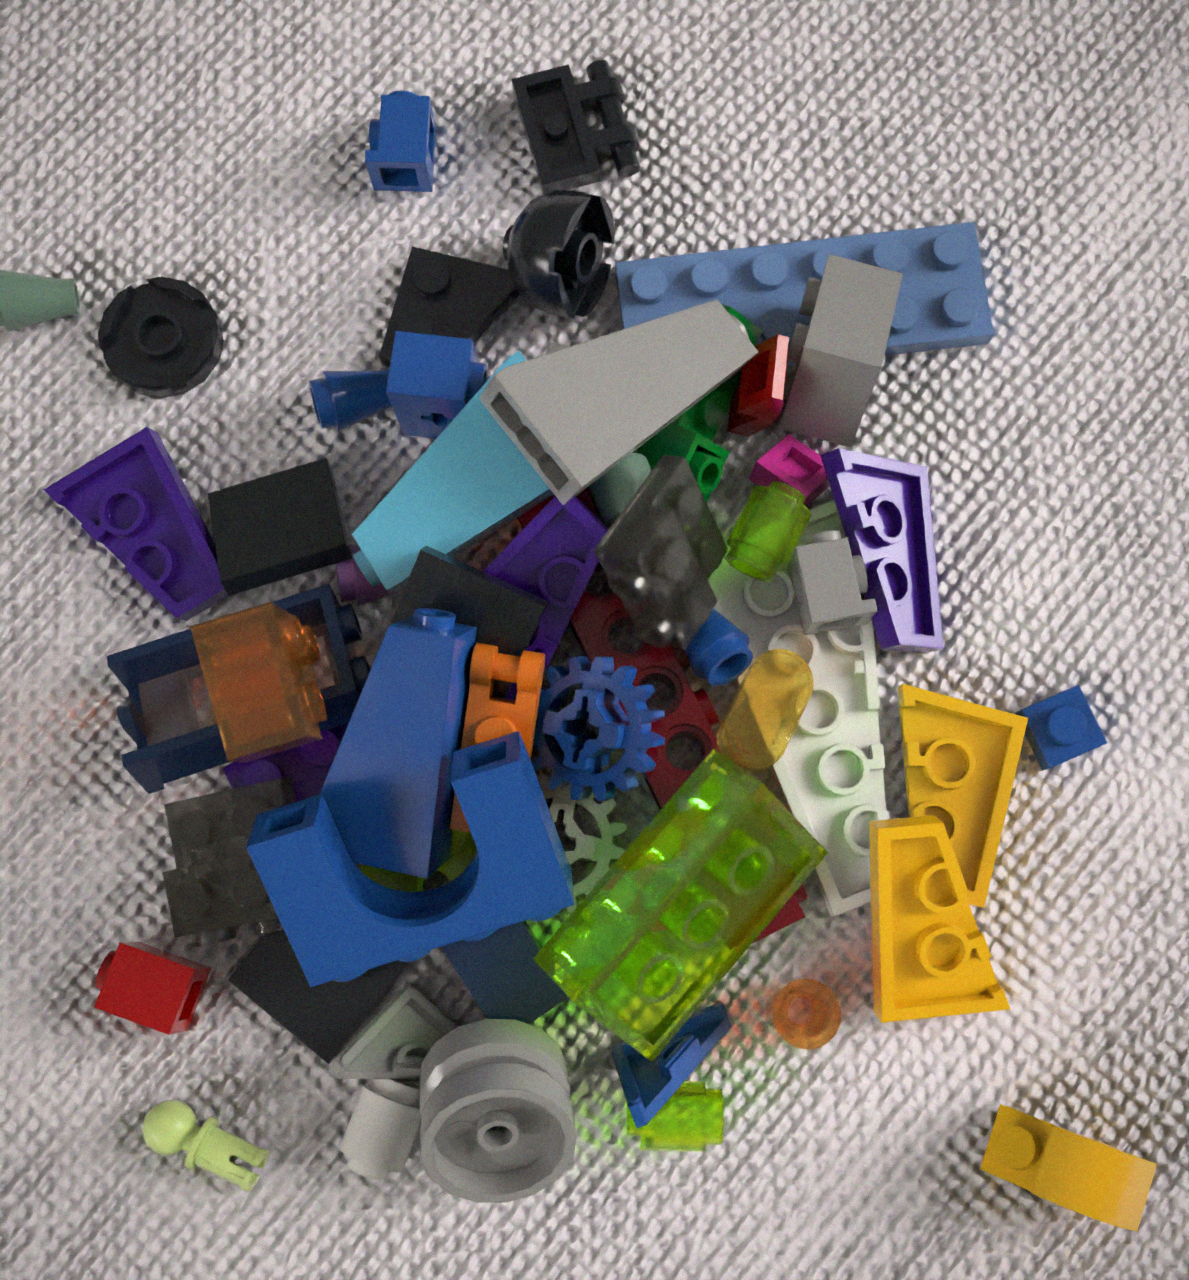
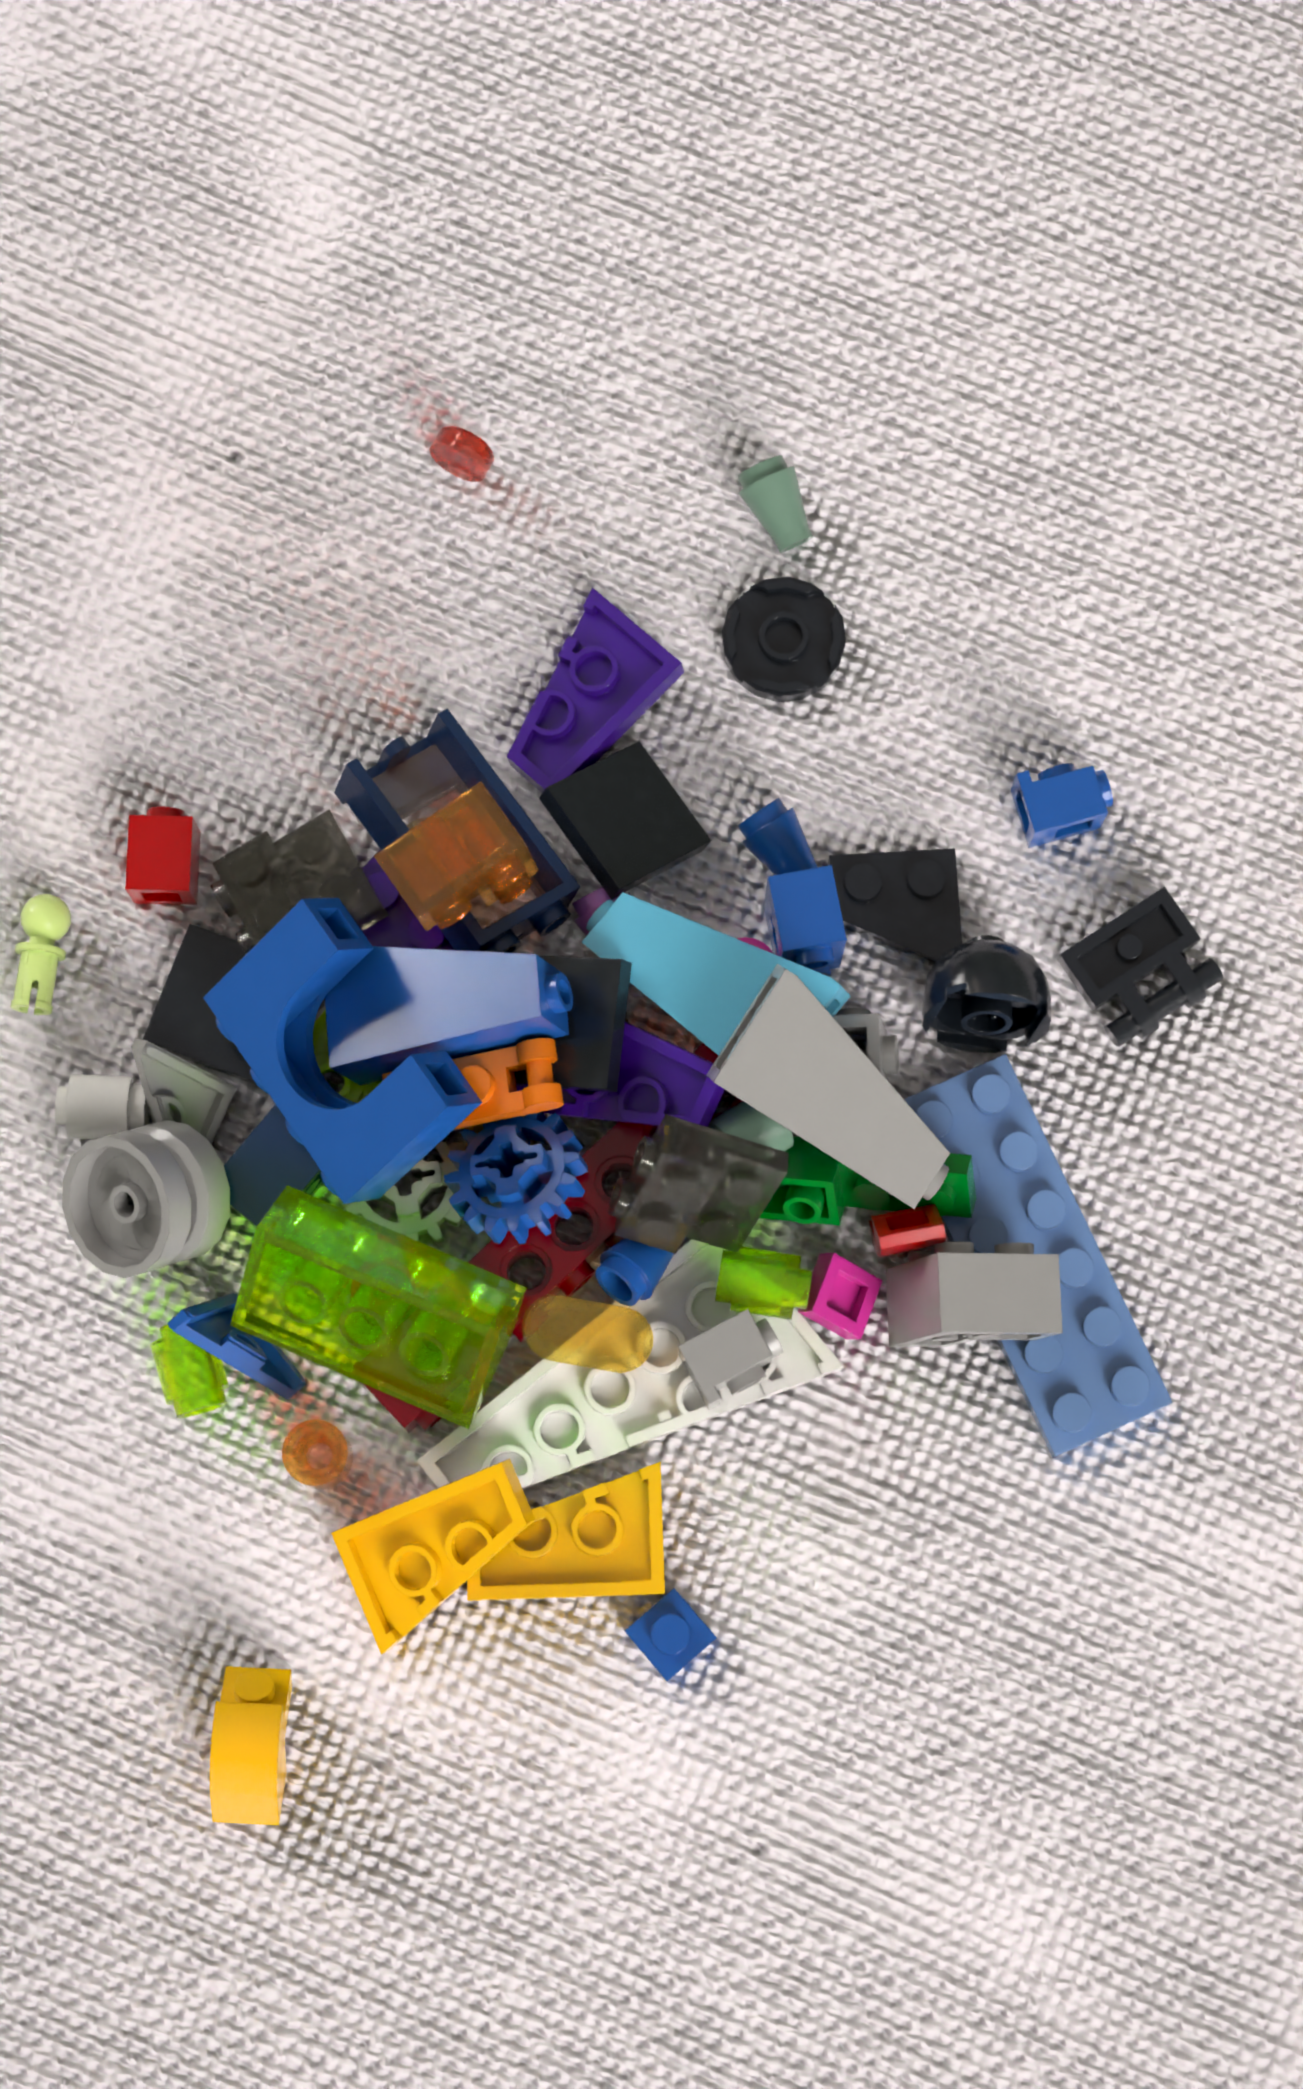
camera: 70 degrees right, 0 degrees up
(890, 526) = (801, 1410): wing -> none

